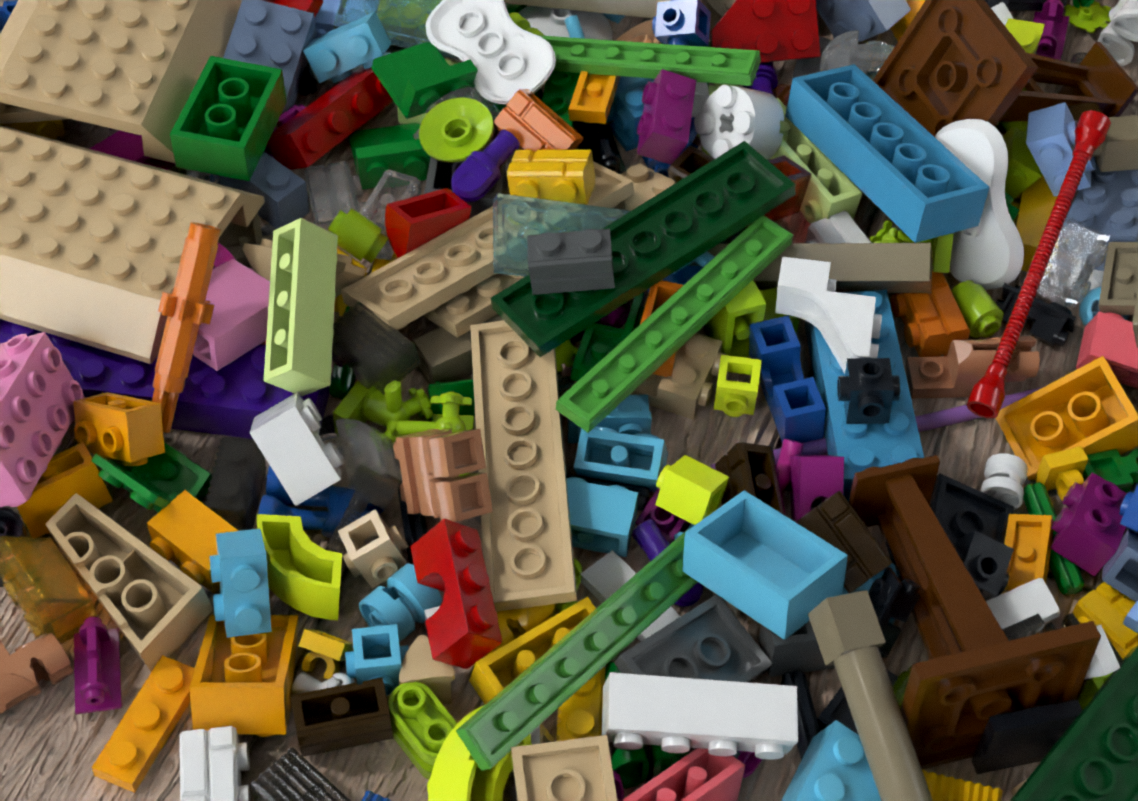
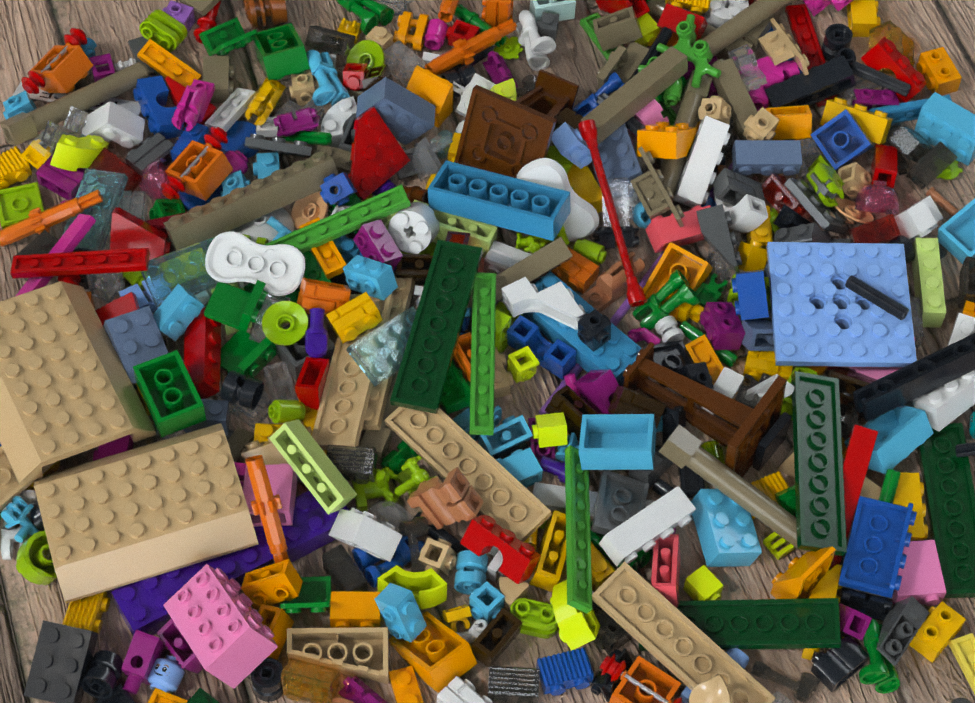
camera: 40 degrees left, 5 degrees up
(327, 175) = (240, 389): none -> black wheel
(570, 261) = (419, 357): dark grey brick -> none
(620, 144) = (370, 277): none -> medium azure brick
(959, 462) = (643, 334): none -> dark pink arm
(1055, 428) = (653, 309): none -> green piece

